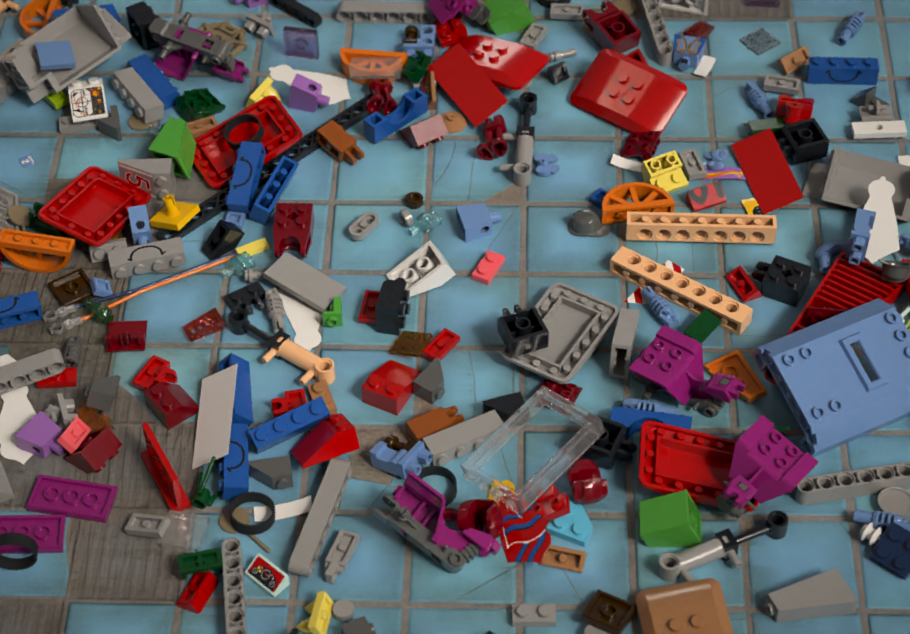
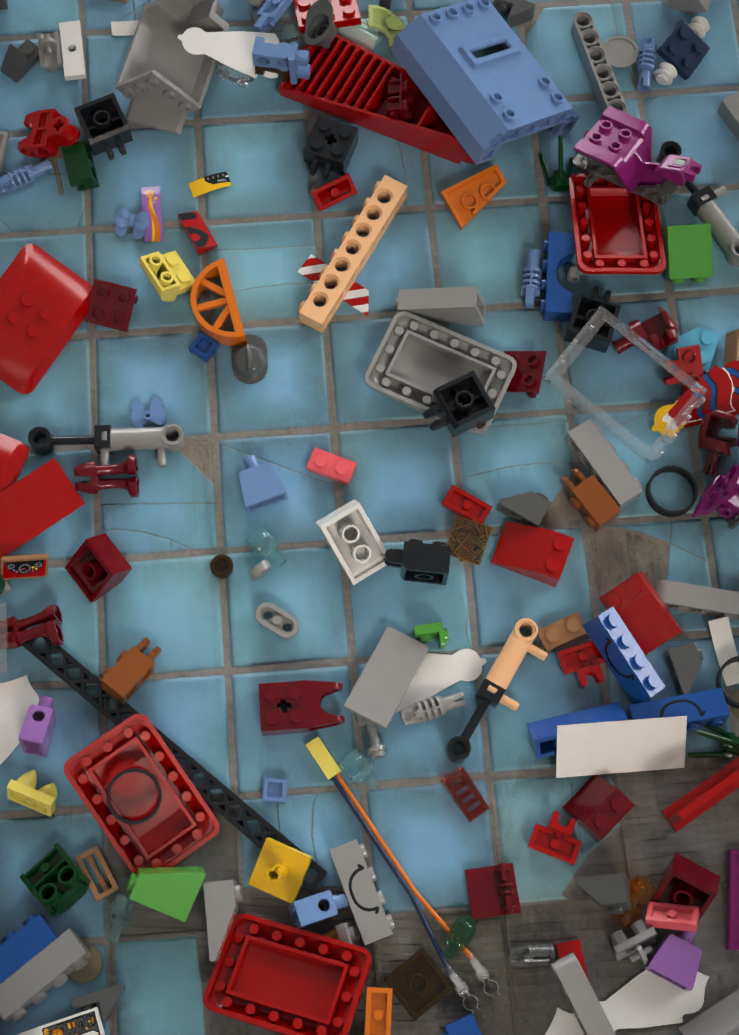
camera: 100 degrees left, 25 degrees up
(100, 287) = (417, 943): medium blue tile -> none
(222, 239) = (320, 796): black slope -> none
(245, 177) = (216, 779): blue brick -> none
(246, 297) = (409, 751): black hinge -> none
(273, 190) = (227, 742): blue brick -> none
(367, 311) = (413, 593): red plate -> none
(407, 459) = (647, 523): medium blue hips -> none
(412, 105) = (74, 603): blue arch -> none
(454, 121) = (68, 536): medium nougat piece -> none
(504, 405) = (554, 421): black slope -> none
(626, 163) = (139, 320): white sticker -> none
(660, 307) = (381, 273): medium blue hinge -> none
(676, 368) = (491, 251): magenta piece -> none
(692, 164) = (141, 245): light grey plate -> none
(701, 227) = (257, 232): light nougat brick -> none
(702, 326) = (412, 231): dark green hinge -> none
(767, 171) = (152, 165): red sticker -> none
(828, 251) = (279, 103): medium blue arm -> none

